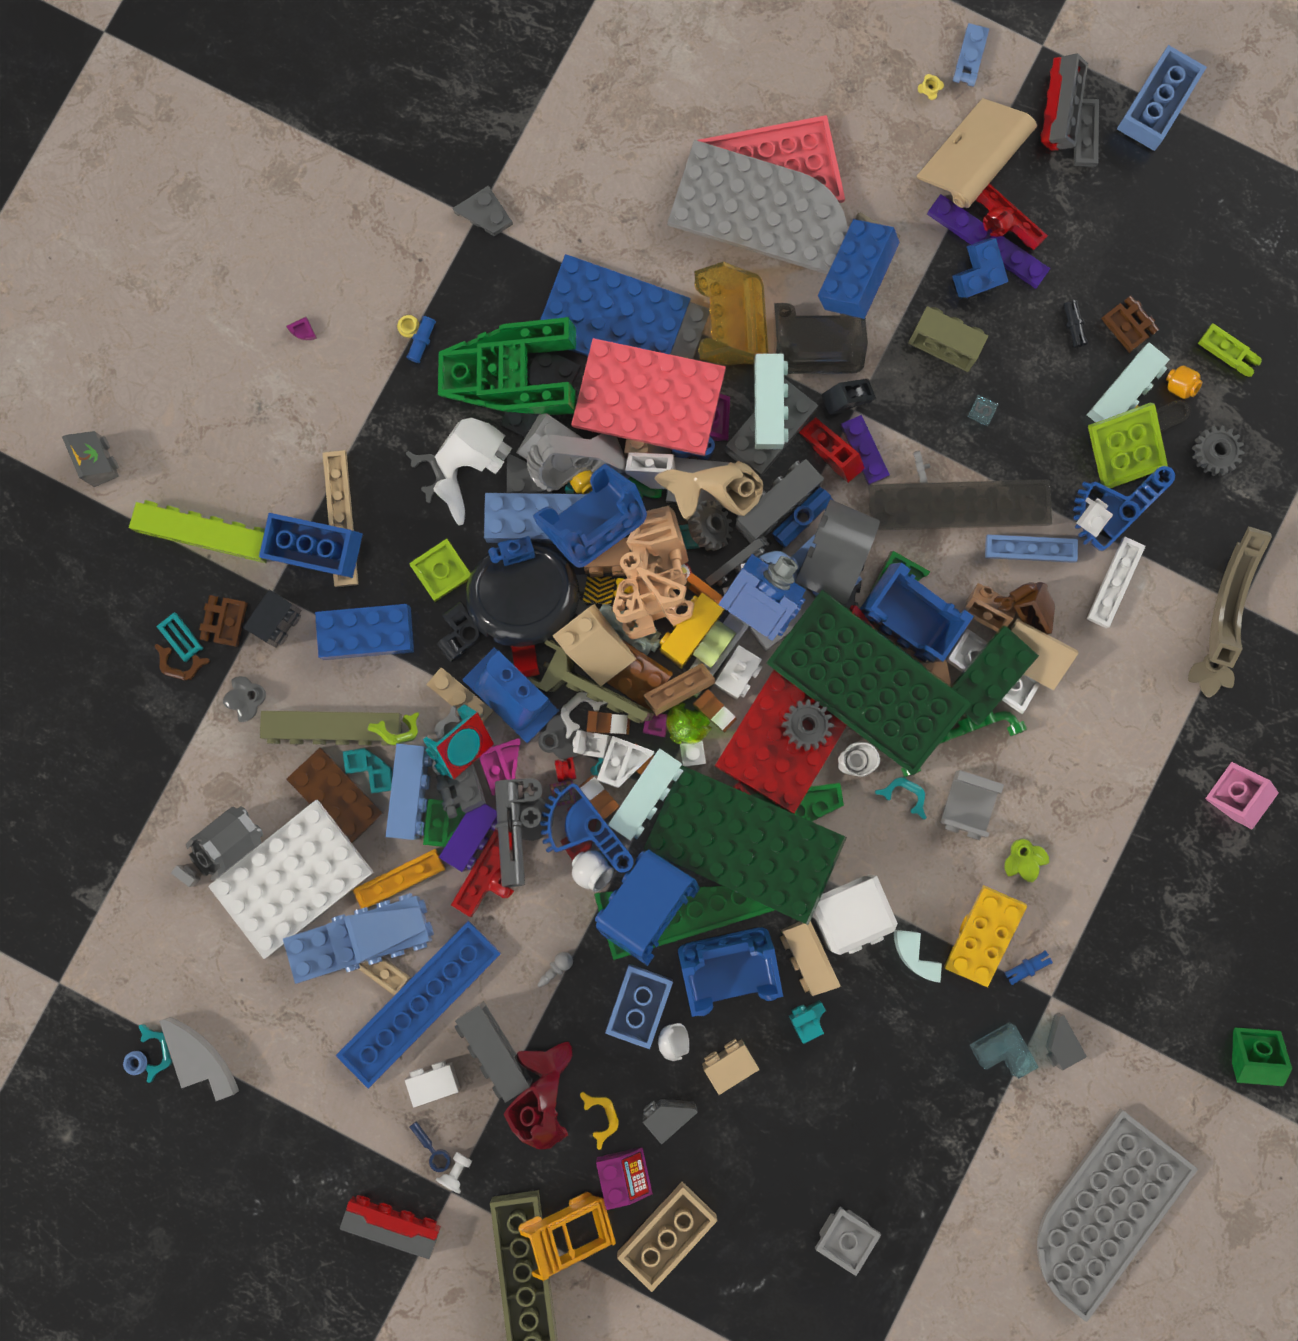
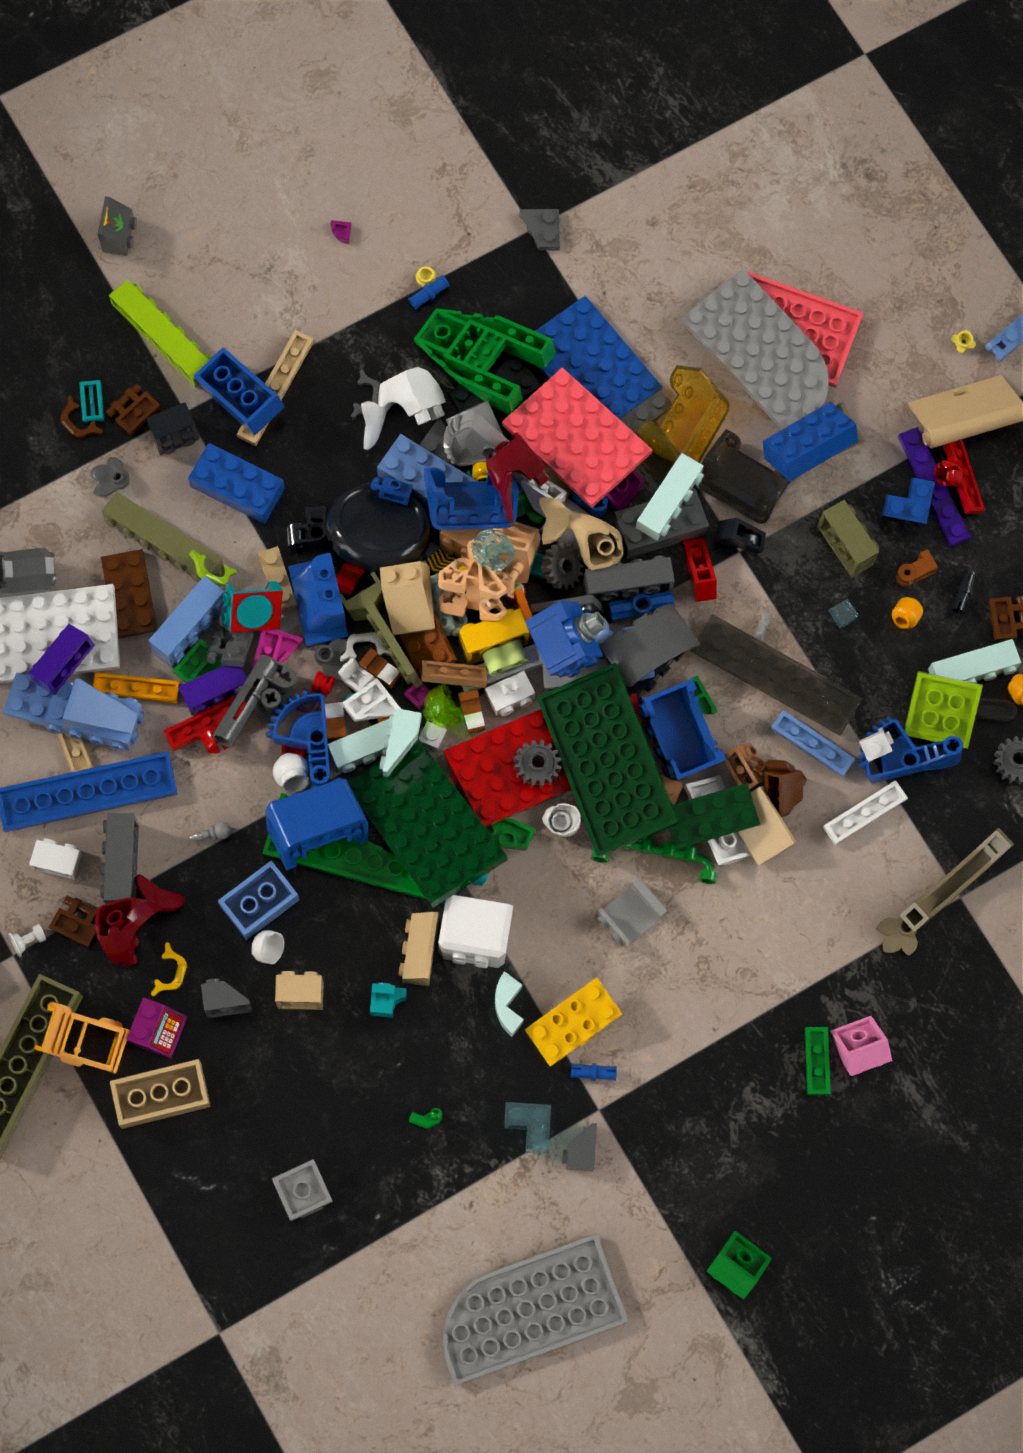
camera: 30 degrees right, 10 degrees down
(317, 903) = (61, 659): none -> dark purple brick
(364, 760) = (170, 581): teal tile -> none
(427, 1143) = (20, 903): dark blue piece -> none
(440, 570) = (327, 473): lime plate -> none
(488, 1134) = (72, 926): none -> reddish brown plate
(607, 457) = (510, 458): none -> dark red hips
(648, 556) = (492, 549): none -> clear light blue piece
(672, 778) = (403, 735): none -> light aqua slope
(729, 968) = (348, 919): blue windscreen -> none
(862, 441) = (727, 586): dark purple plate -> none
(907, 784) = (587, 862): teal helmet -> none
(912, 1103) = (428, 1120): none -> green arm
(1027, 323) = (918, 570): none -> dark orange leg
(1027, 863) = (646, 989): lime plate -> none
(1039, 375) = (907, 613): none -> light orange head
(1213, 833) = (817, 1061): none -> green plate

